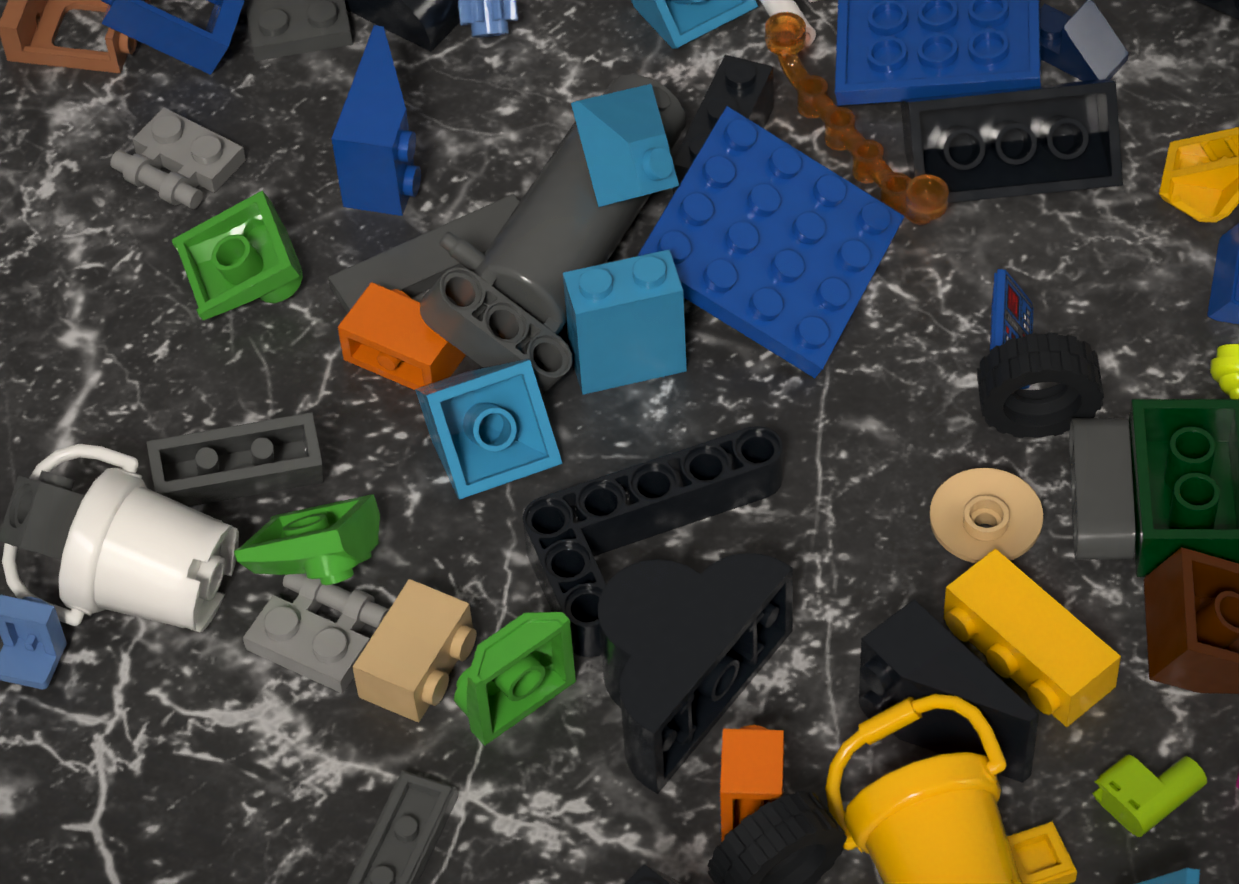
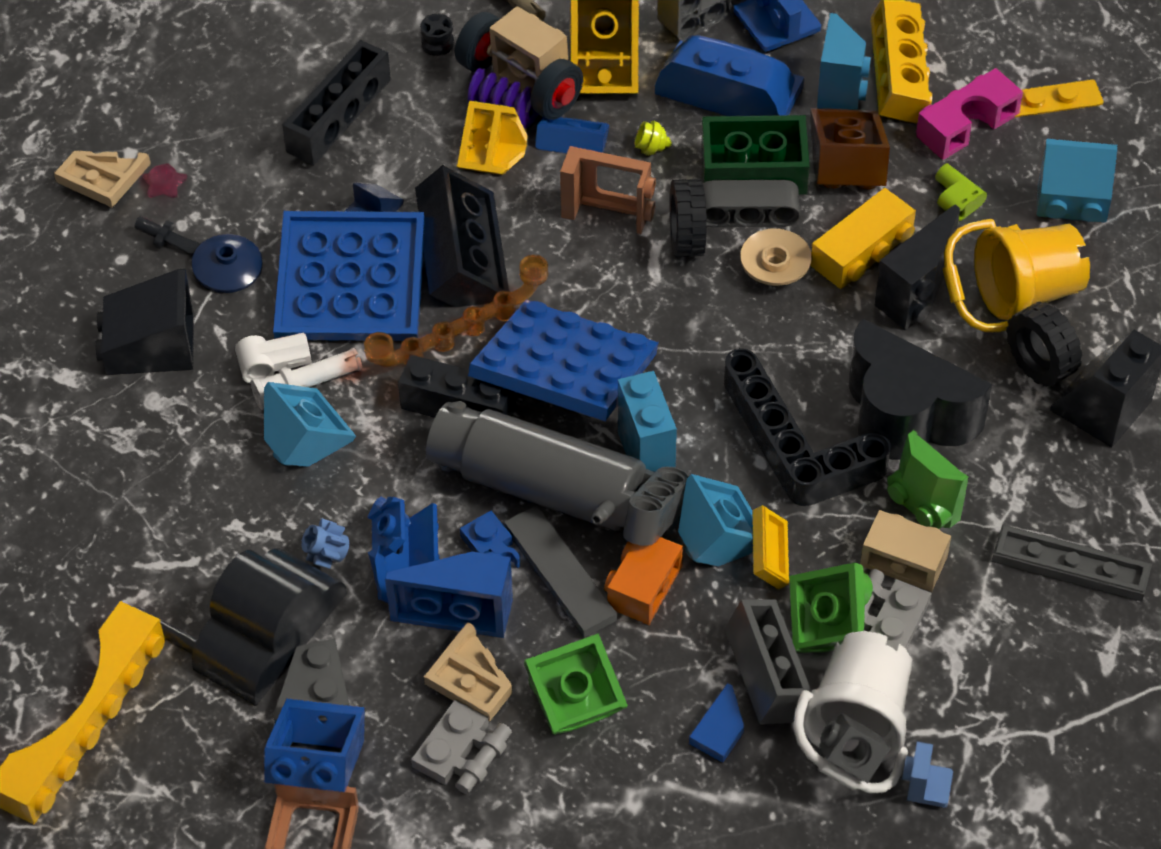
camera: 95 degrees left, 0 degrees up
(157, 417) = (719, 727): none -> blue tile
(275, 160) = (470, 675): none -> tan wing
(438, 485) = (770, 547): none -> yellow tile
(486, 183) = (489, 535): none -> blue plate
(524, 72) = (395, 530): none -> blue piece
(624, 144) = (526, 402): dark azure slope -> none
(749, 772) = (1000, 355): orange brick -> none
(1010, 311) = (625, 249): blue slope -> none
(1109, 266) = (580, 185): none -> nougat window

